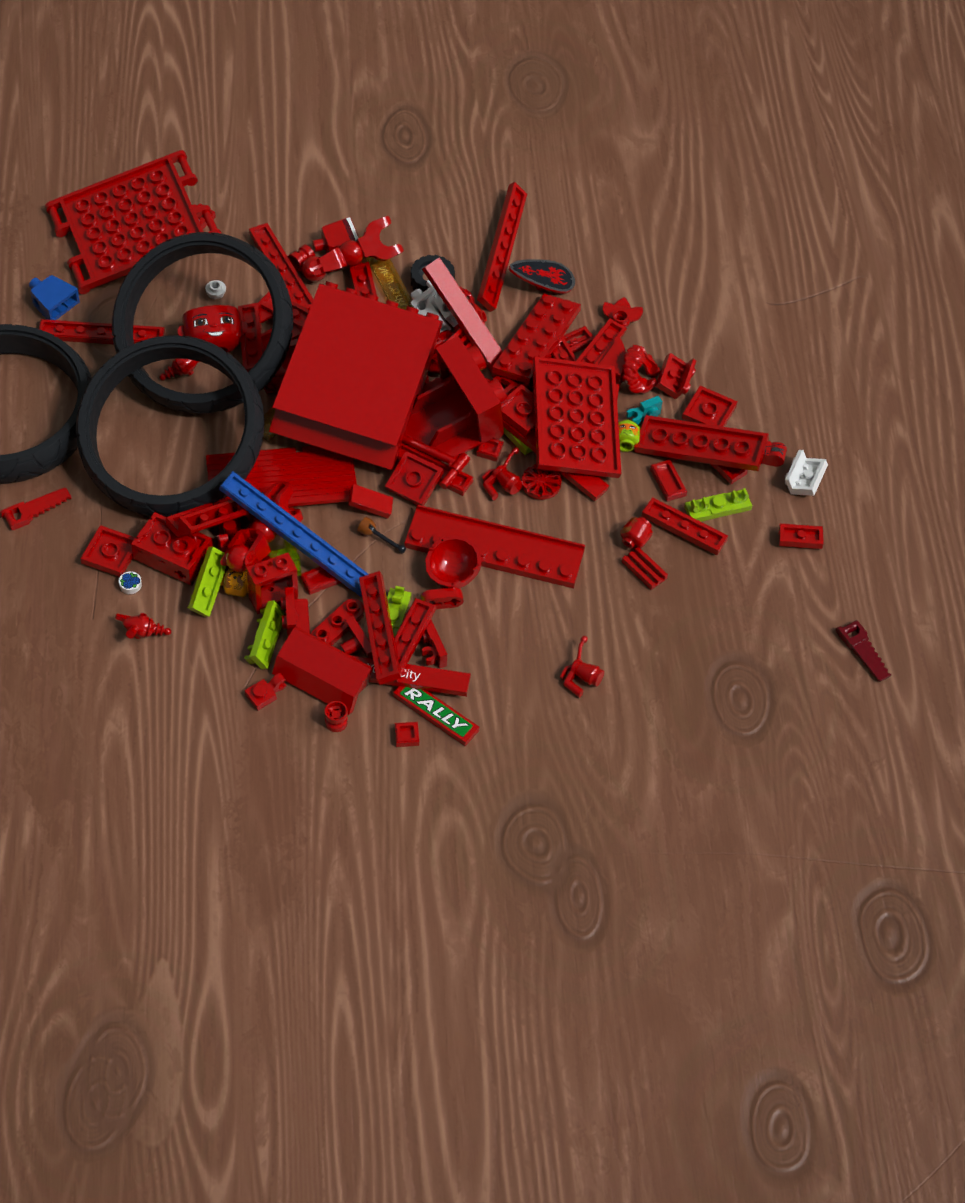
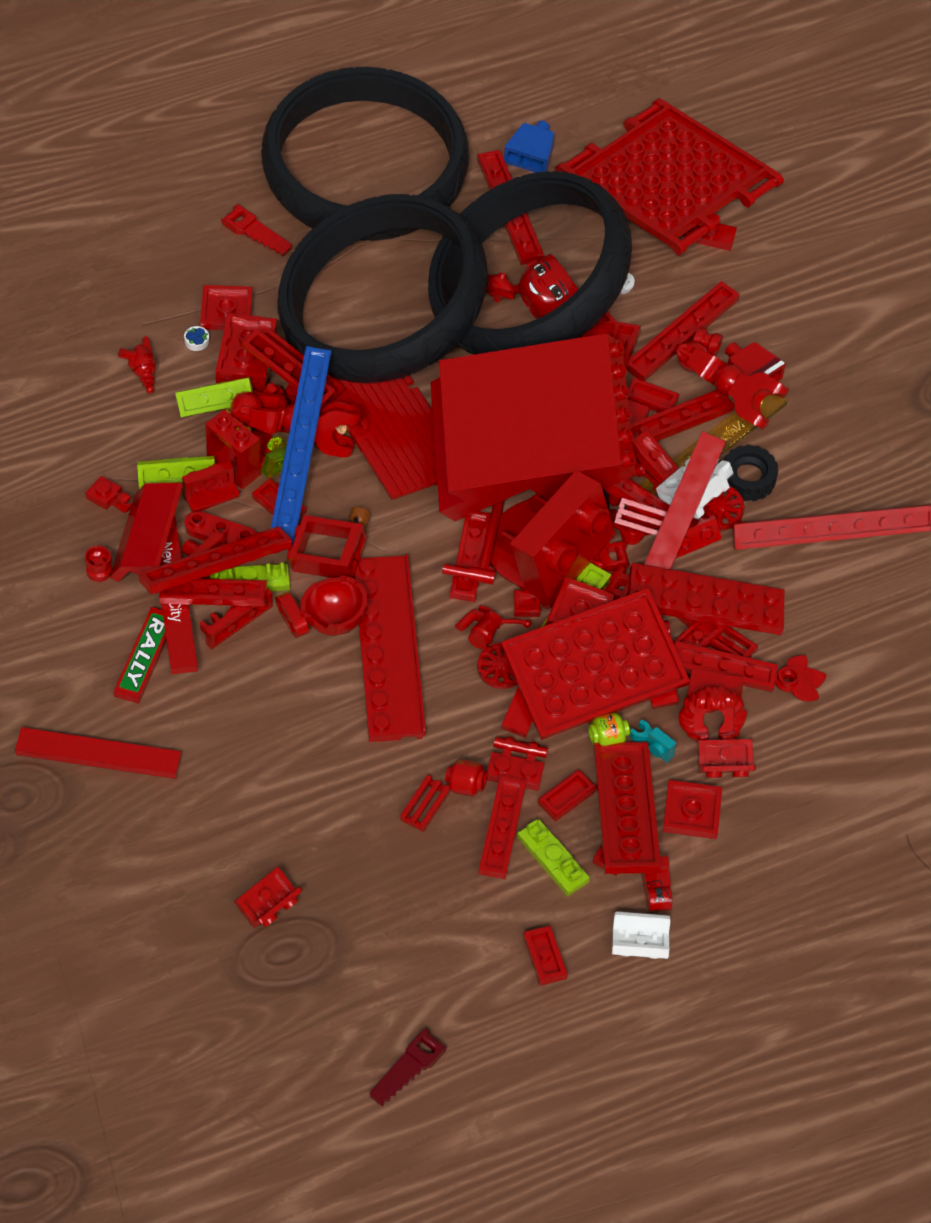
camera: 70 degrees right, 0 degrees up
(370, 501) = (392, 509): red tile -> none
(402, 535) = (324, 566): none -> red window
(407, 734) = (106, 637): red tile -> none
(414, 479) = (441, 540): red plate -> none
(517, 772) = (98, 753): none -> red tile
(544, 274) = (809, 580): shield -> none
(587, 672) = (251, 780): red piece -> none
(634, 504) = (517, 767): none -> red plate
(699, 691) = (267, 898): none -> red bracket

